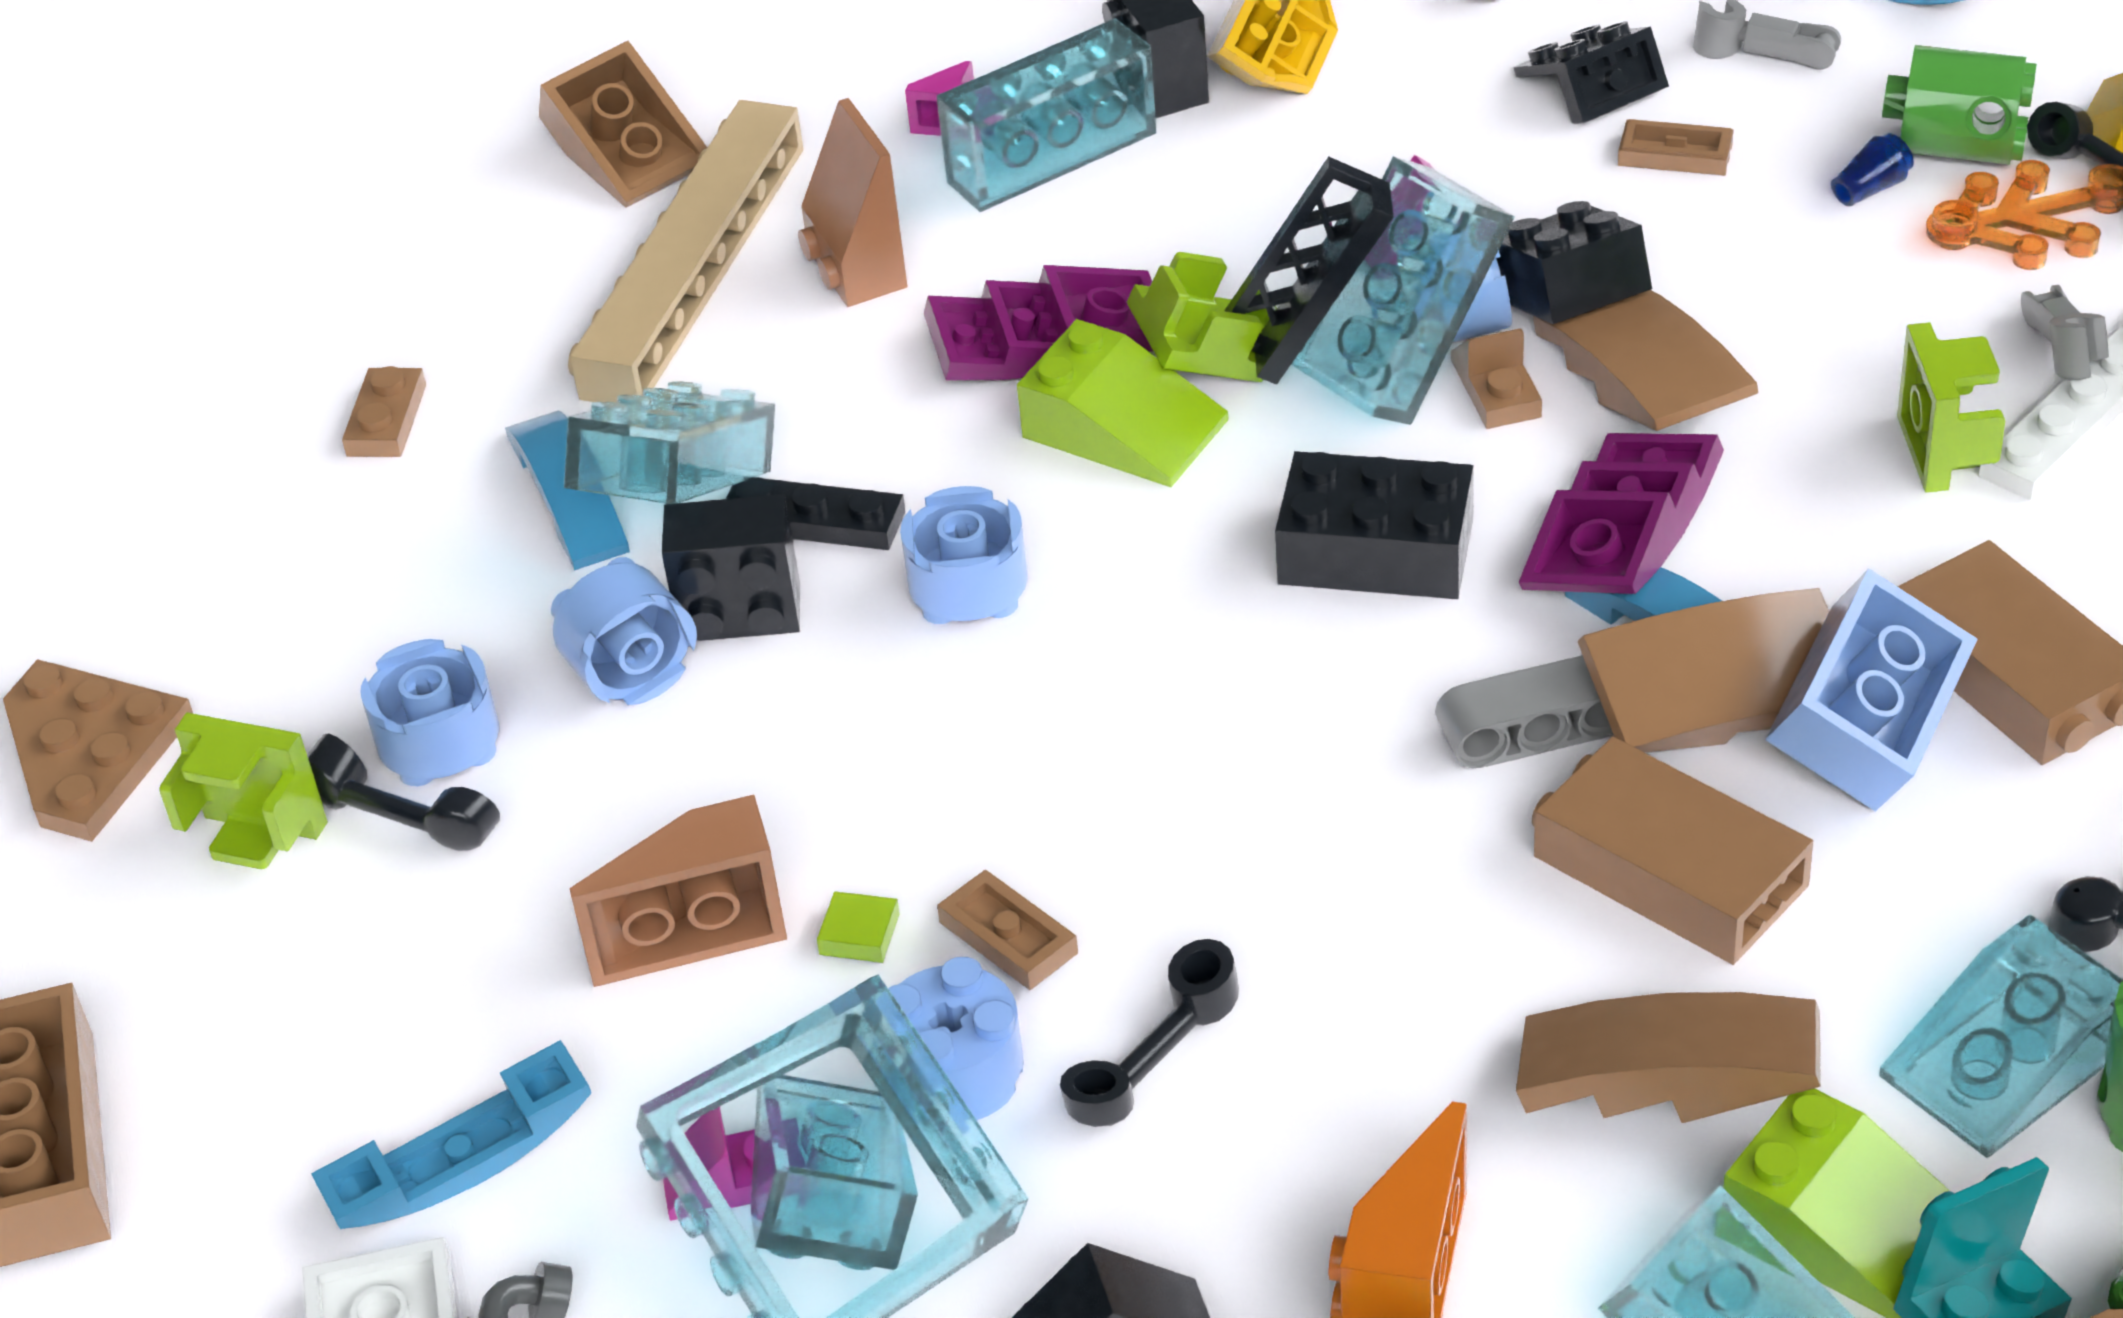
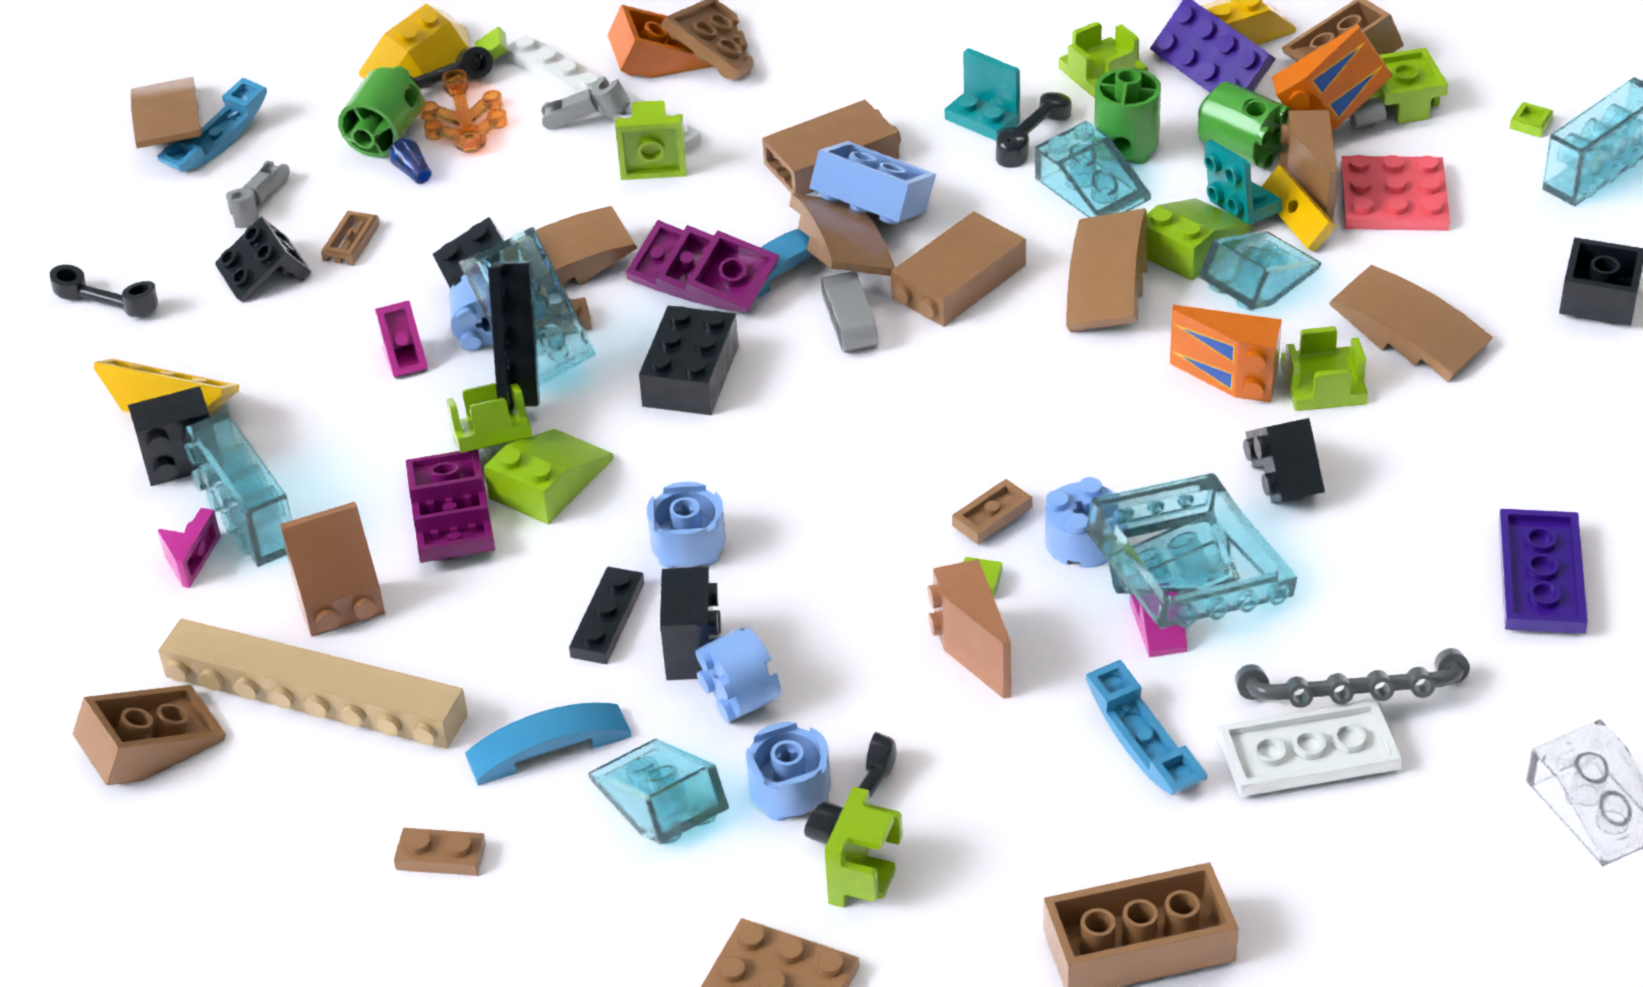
camera: 90 degrees left, 0 degrees up
(435, 586) = (662, 790): none -> clear light blue slope
(669, 443) = (581, 639): clear light blue brick -> none
(1202, 993) = (1042, 438): black piece -> none

